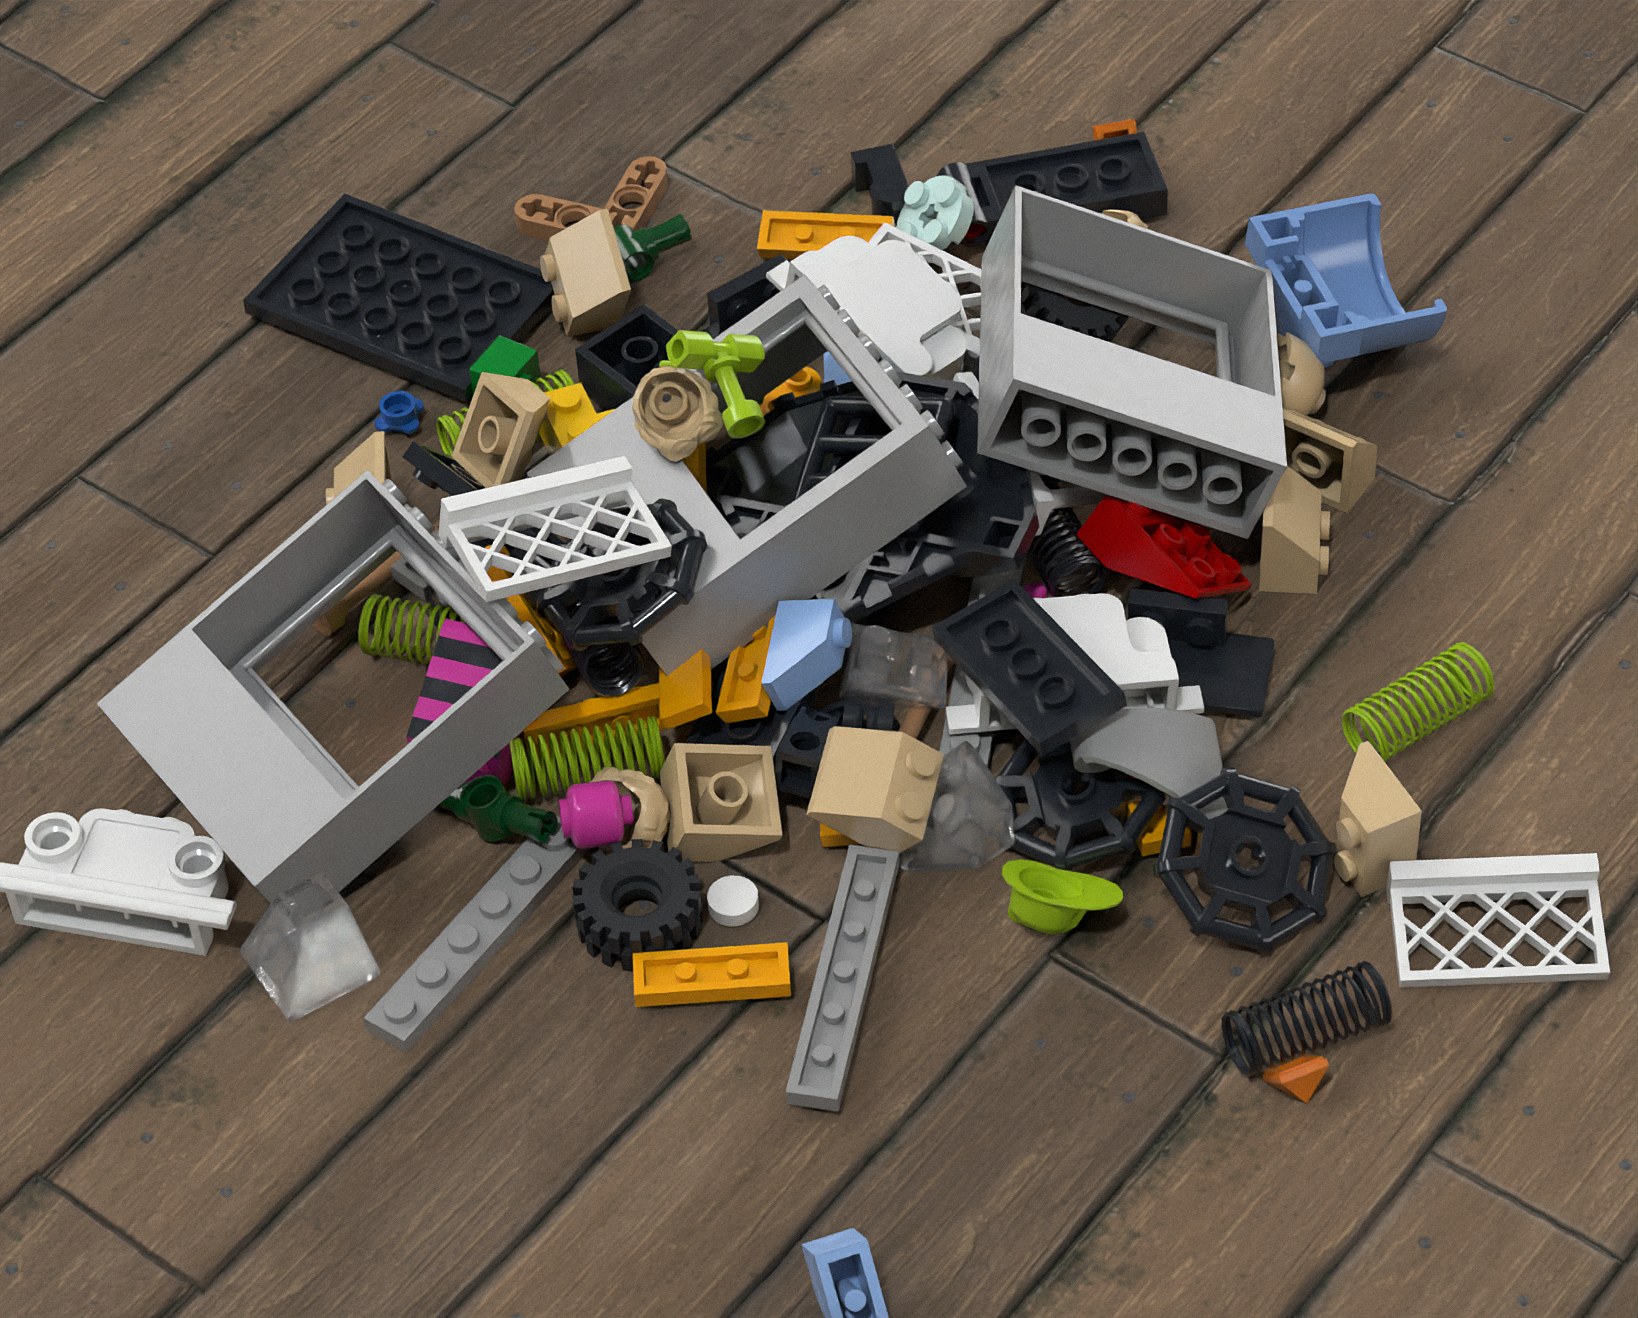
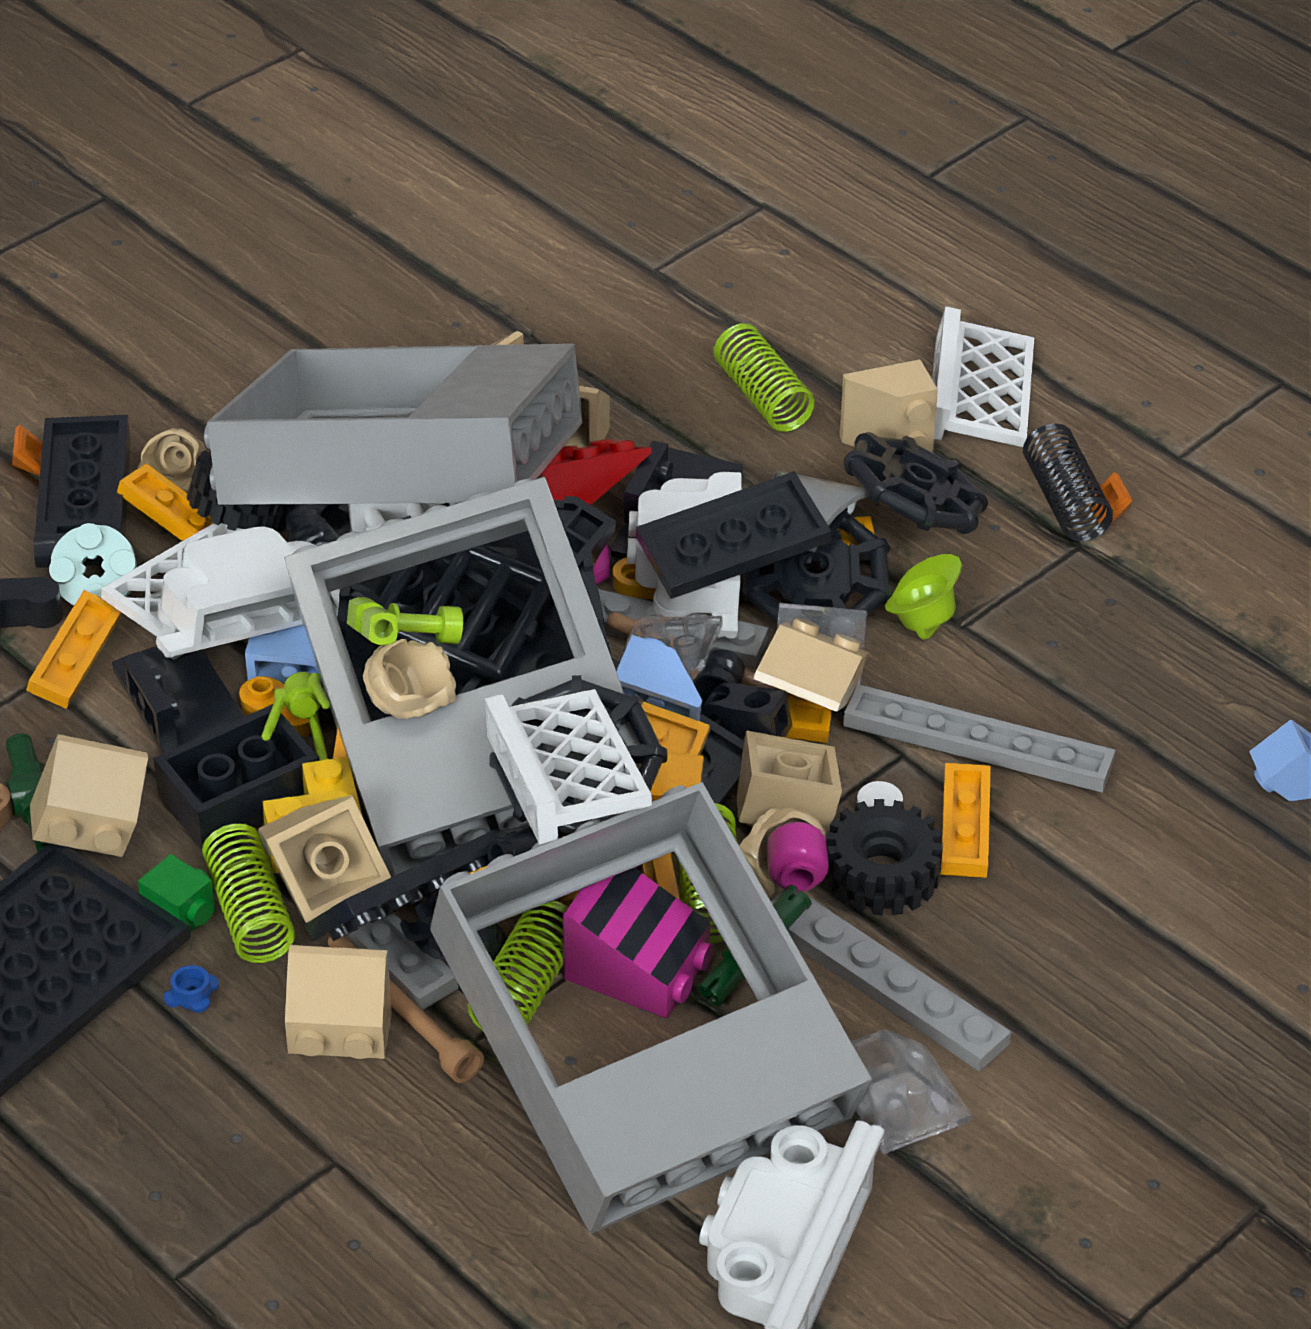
camera: 85 degrees left, 5 degrees down
(1335, 280) = (264, 339): medium blue piece -> none

